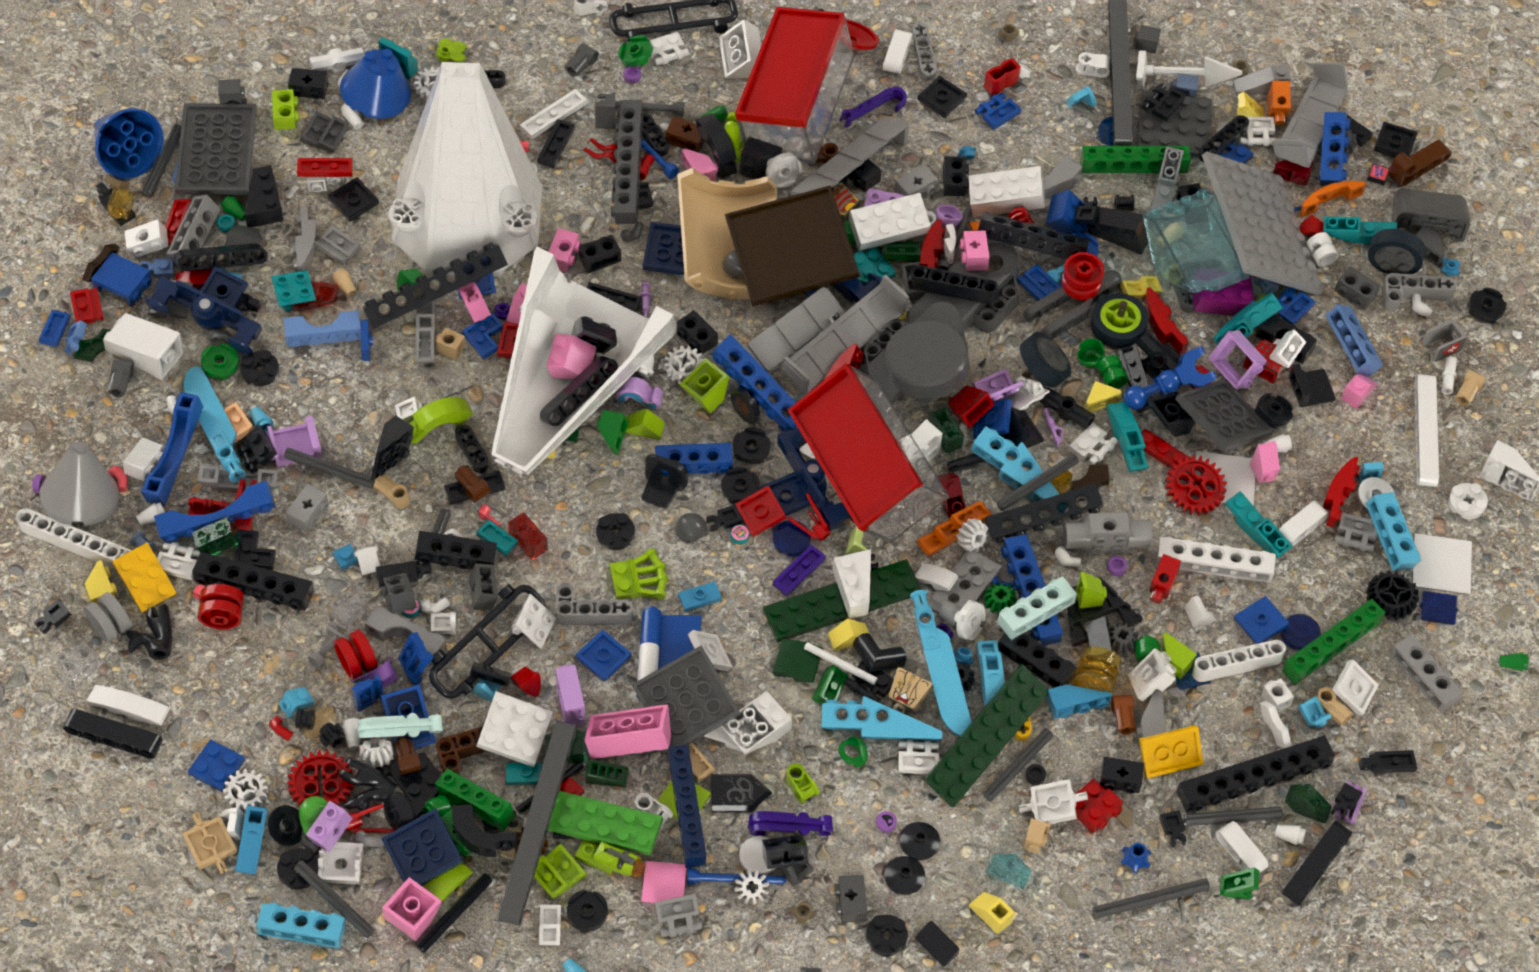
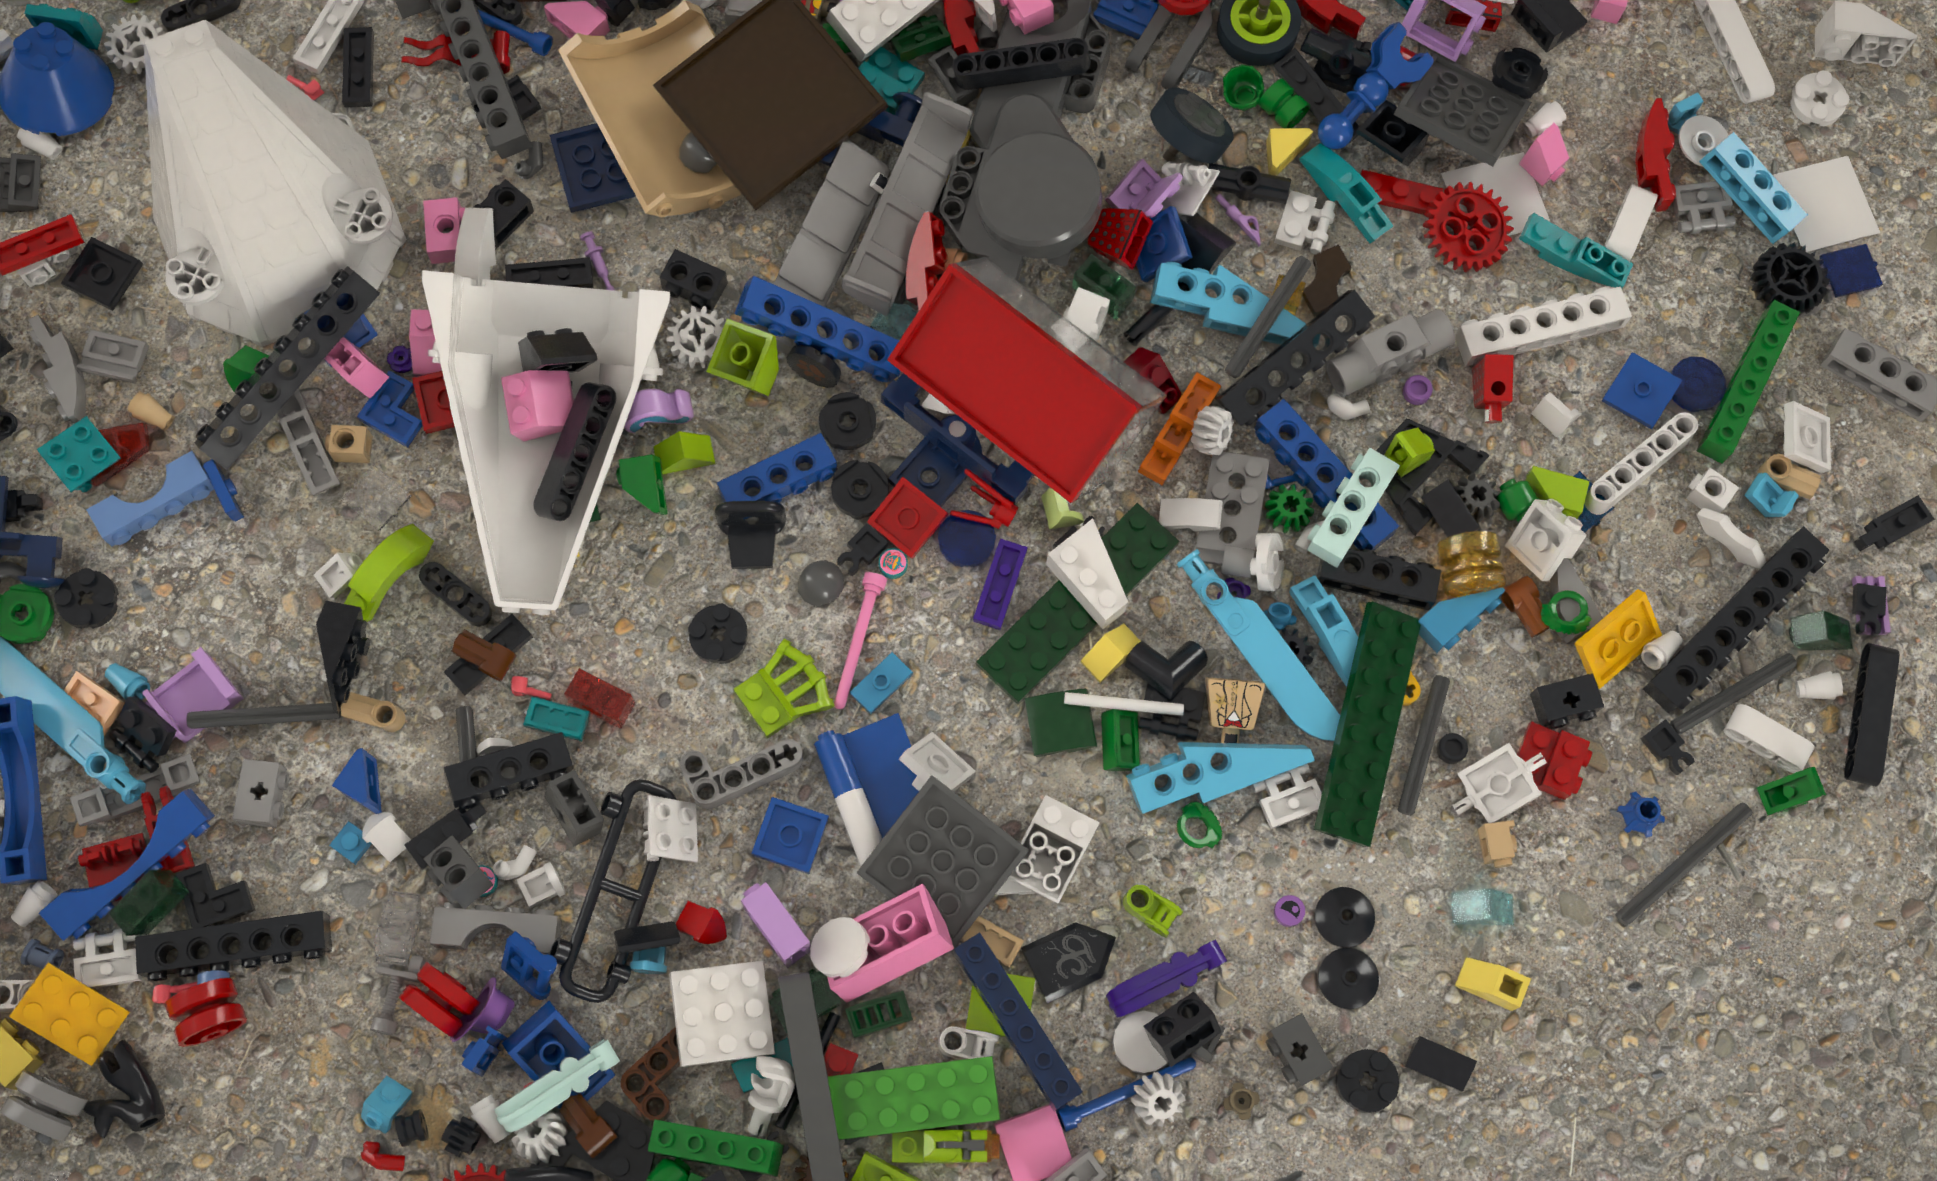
camera: 25 degrees left, 15 degrees up
(367, 524) = (360, 781): none -> blue slope
(522, 787) = (771, 1093): none -> white piece
(577, 261) = (475, 244): none -> white slope
(601, 720) = (839, 947): none -> white tile
(721, 540) = (873, 585): none -> bright pink piece
(1132, 721) = (1578, 624): none -> green piece
(1194, 770) = (1661, 650): none -> white cone

